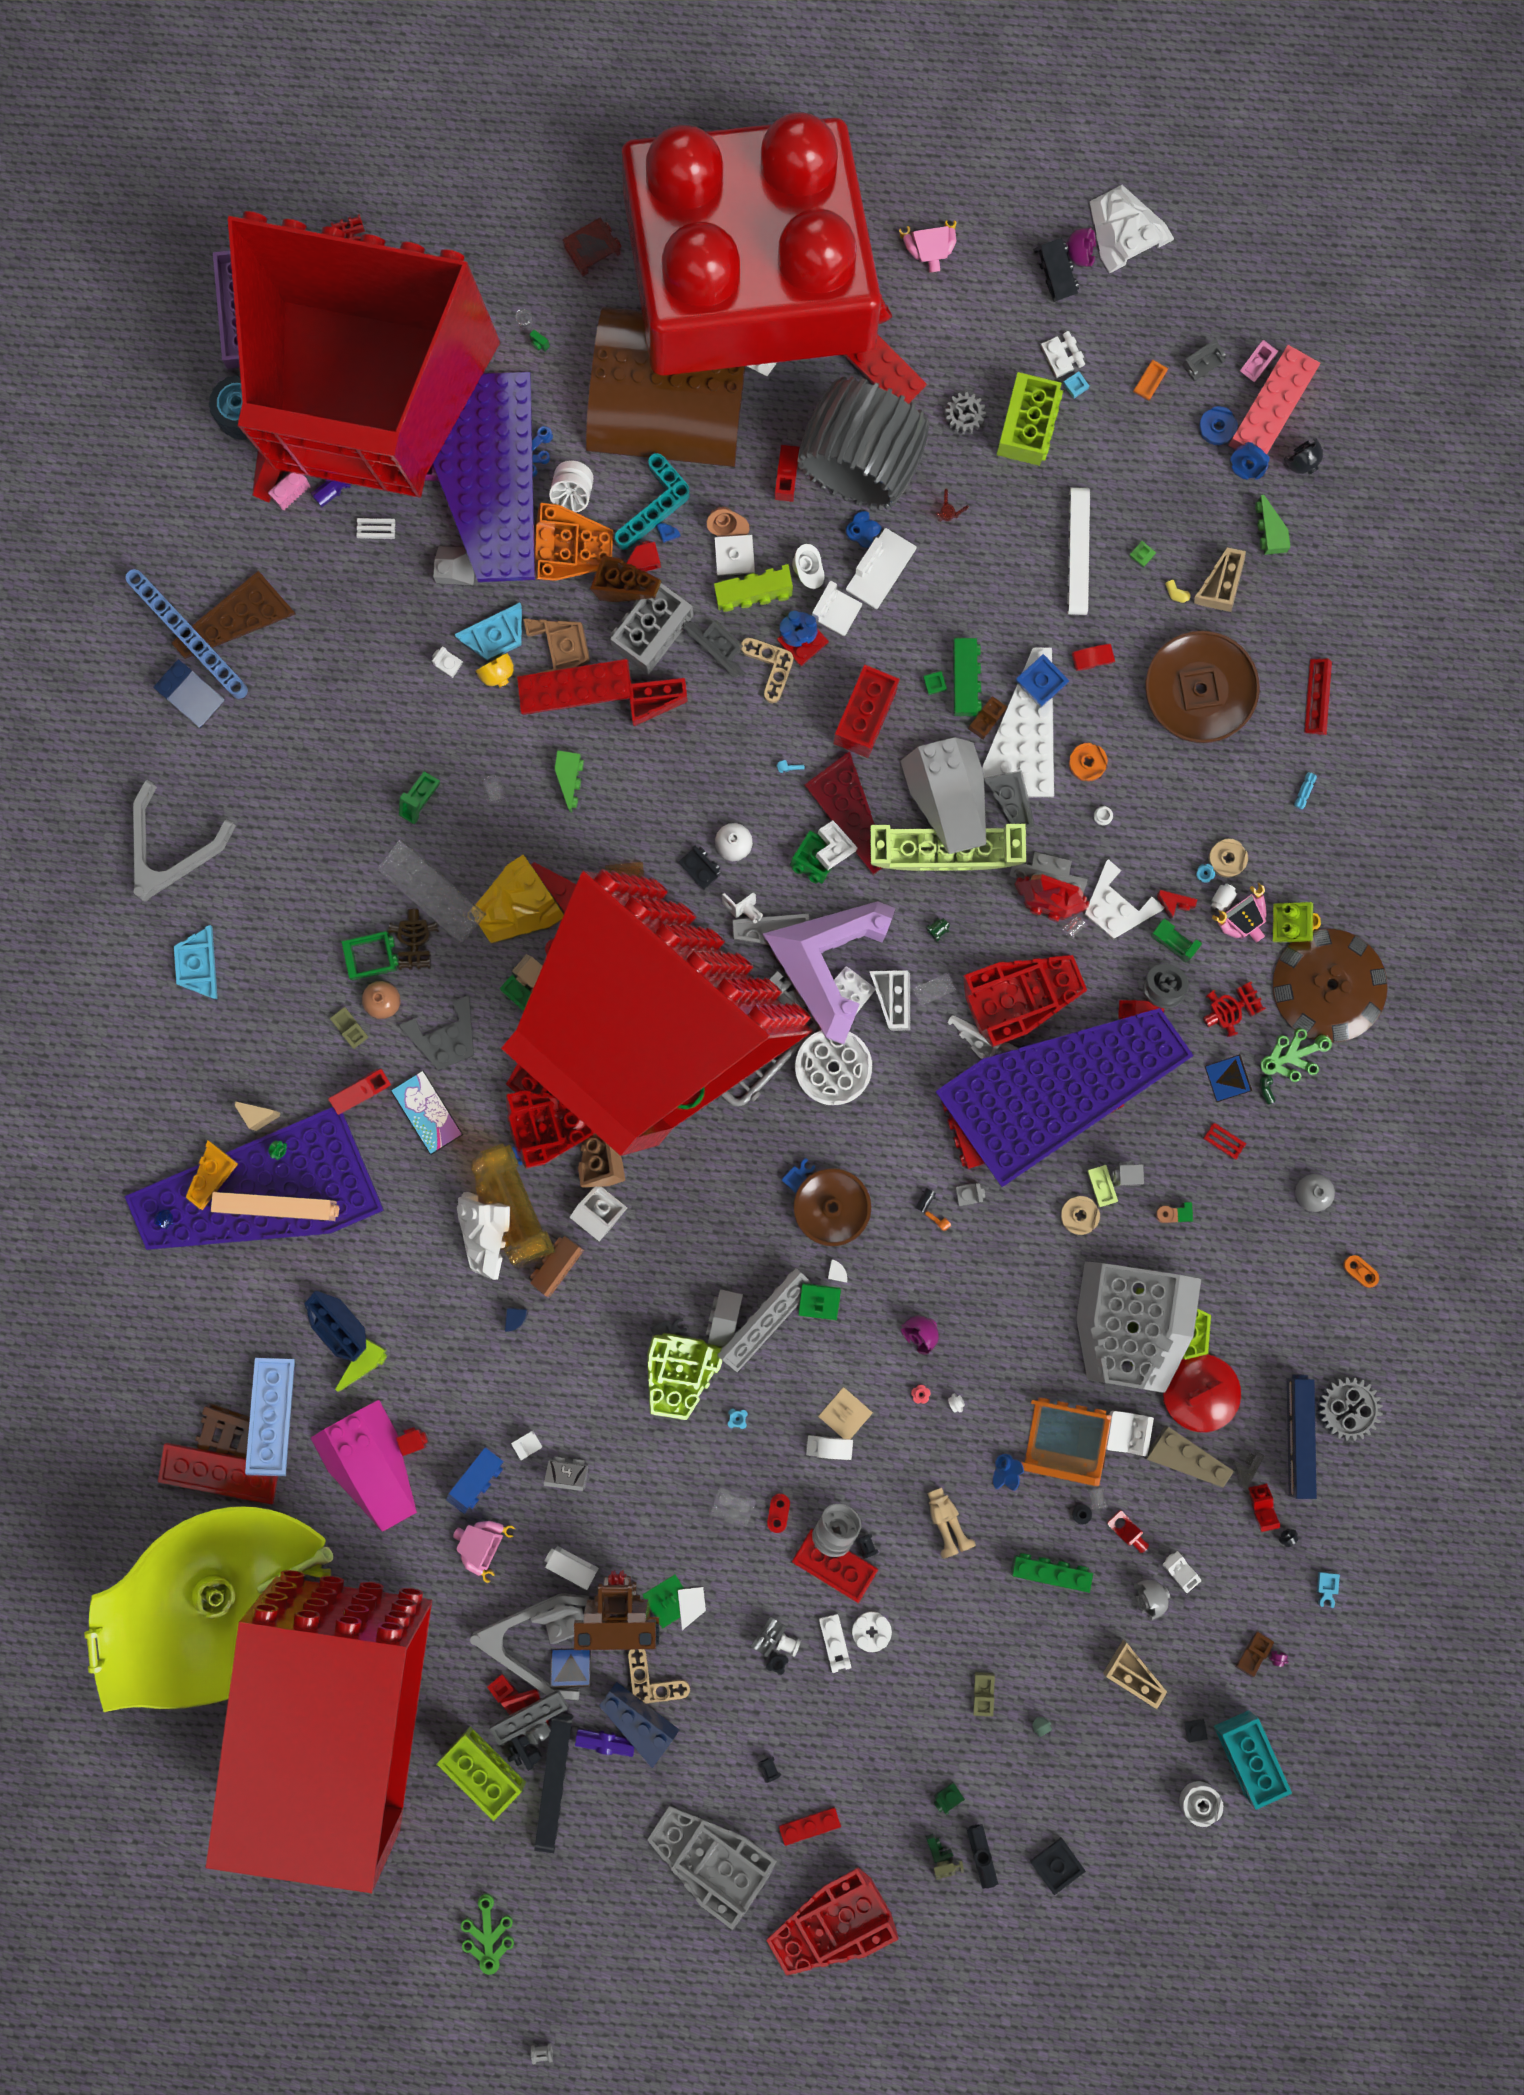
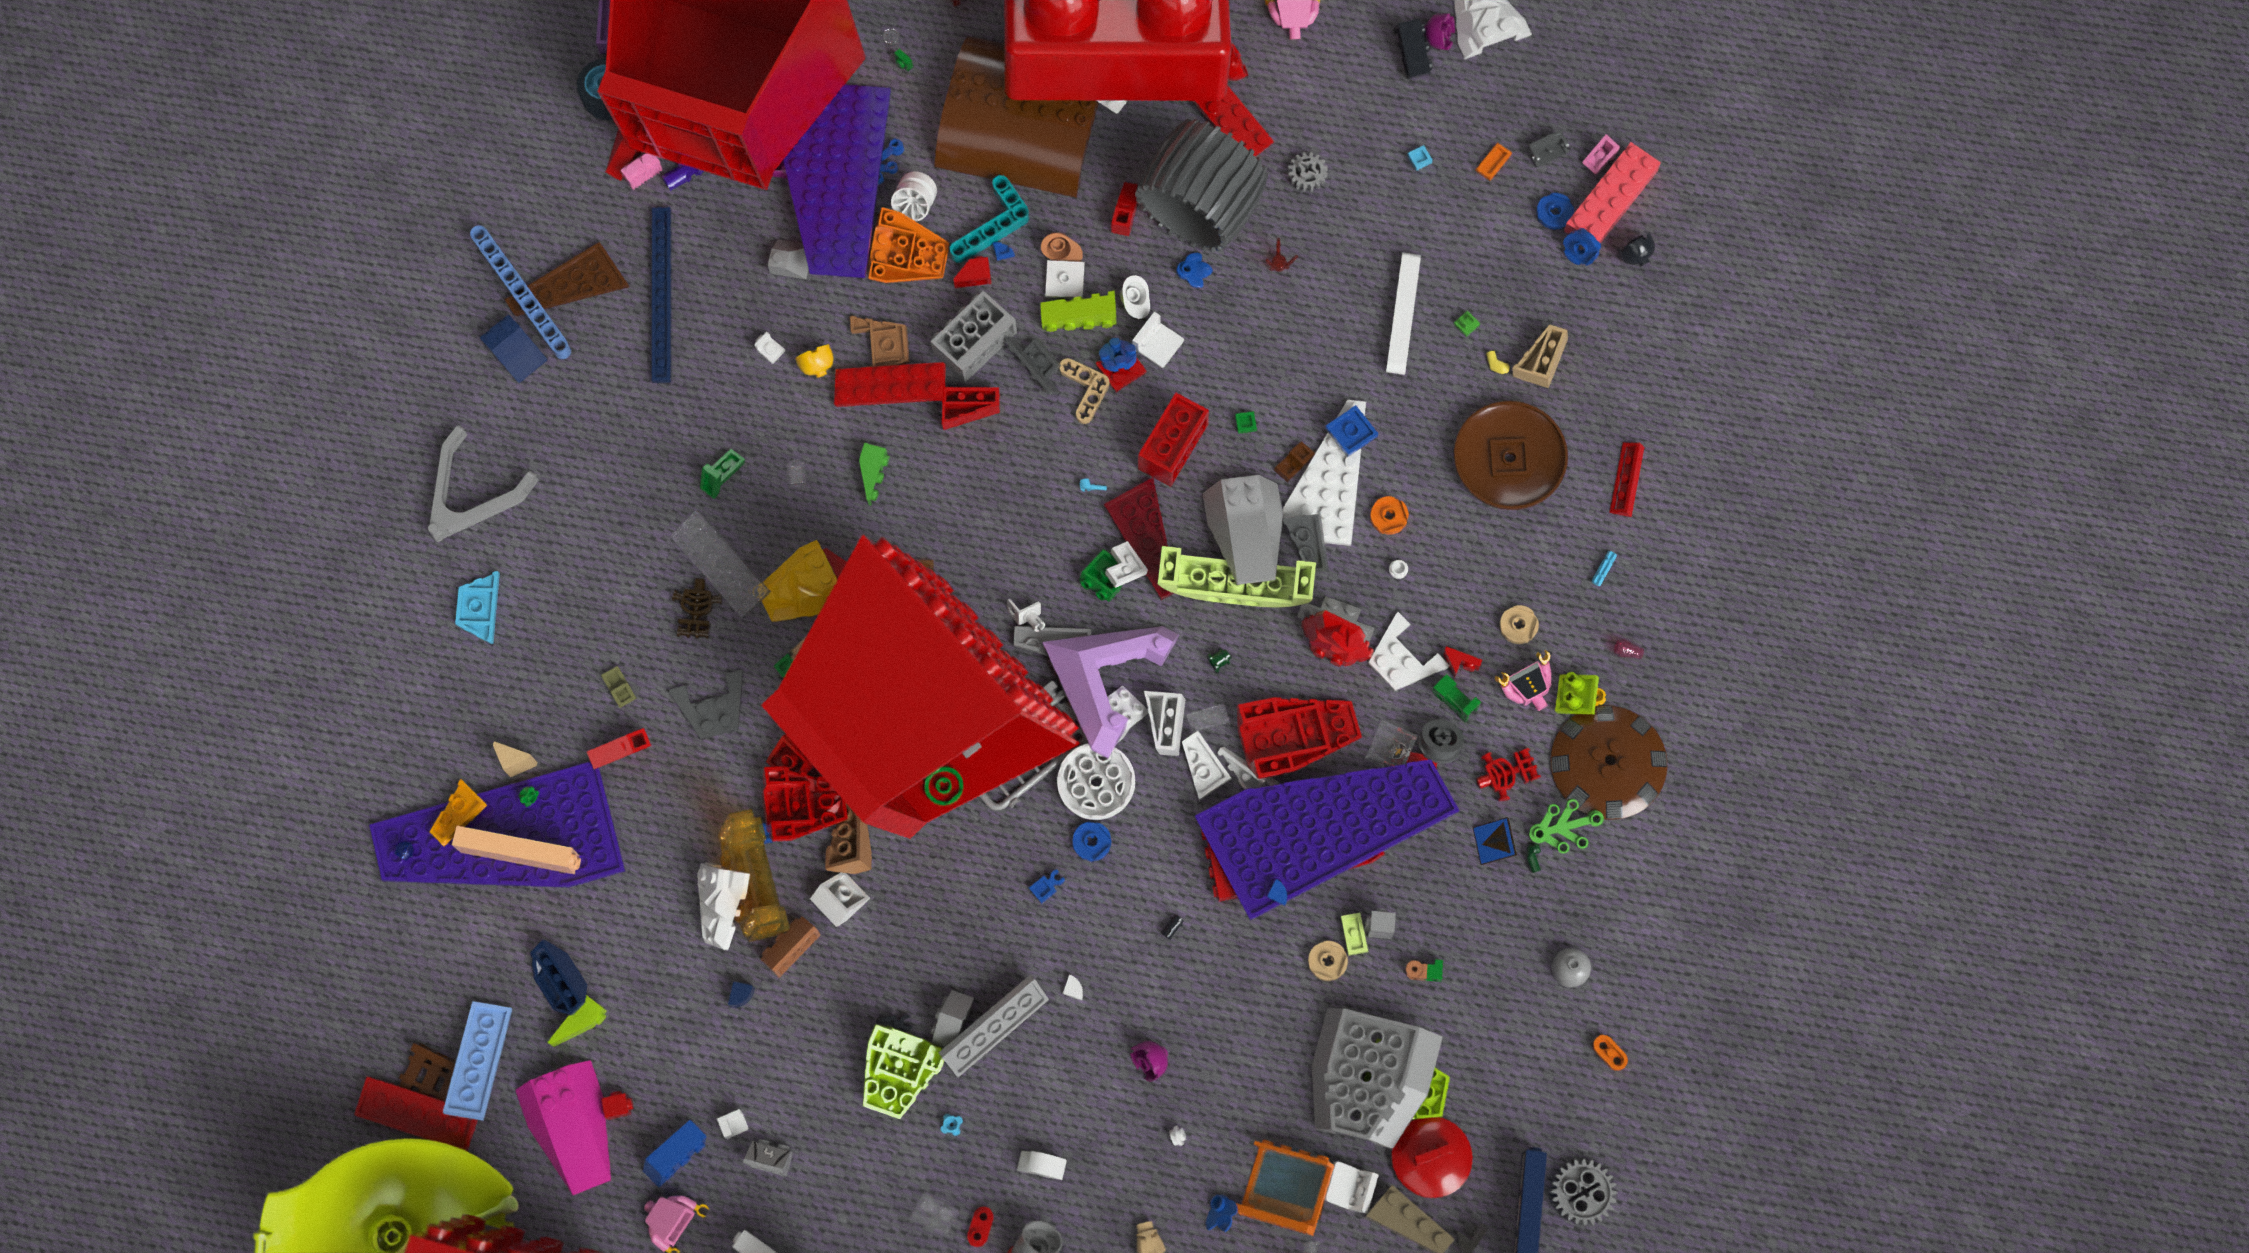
camera: 10 degrees right, 10 degrees down
(329, 618) = (661, 295): none -> dark blue plate
(350, 957) = (630, 622): green window -> none
(360, 521) = (703, 220): white tile -> none
(381, 1000) = (654, 663): nougat cylinder -> none
(426, 1112) = (683, 779): tile -> none
(495, 634) = (820, 327): medium azure wing -> none
(622, 582) = (949, 290): reddish brown wedge -> none
(699, 867) = (989, 572): black bracket -> none
(739, 847) = (1026, 551): white cylinder -> none
(819, 1301) = (1051, 1014): green piece -> none
(832, 1207) = (1076, 921): reddish brown dish -> none
(845, 1414) = (1063, 1134): tan piece -> none
(847, 1124) = (1092, 830): none -> blue plate
(880, 568) = (1206, 307): white bracket -> none
(920, 1399) = (1137, 1122): coral plate -> none
(936, 1036) = (1204, 766): none -> white wing
(944, 1224) = (1188, 953): orange hand -> none
(966, 676) = (1277, 420): green brick -> none
(970, 1194) = (1218, 926): light grey bracket -> none
(1027, 1158) = (1278, 893): none -> blue tile
(1030, 419) = (1369, 183): lime brick -> none
(1057, 357) = (1404, 129): white plate -> none
(1074, 926) = (1358, 667): clear bush -> none
(1093, 657) = (1406, 415): red slope -> none
(1116, 996) = (1390, 745): none -> clear slope
(1200, 873) = (1494, 631): medium azure plate -> none
(1223, 897) = (1510, 662): white brick -> none
(1238, 1150) = (1471, 894): red tile -> none
(1276, 533) = (1600, 319): bright green slope -> none
(1336, 870) = (1626, 649): none -> clear pink cone

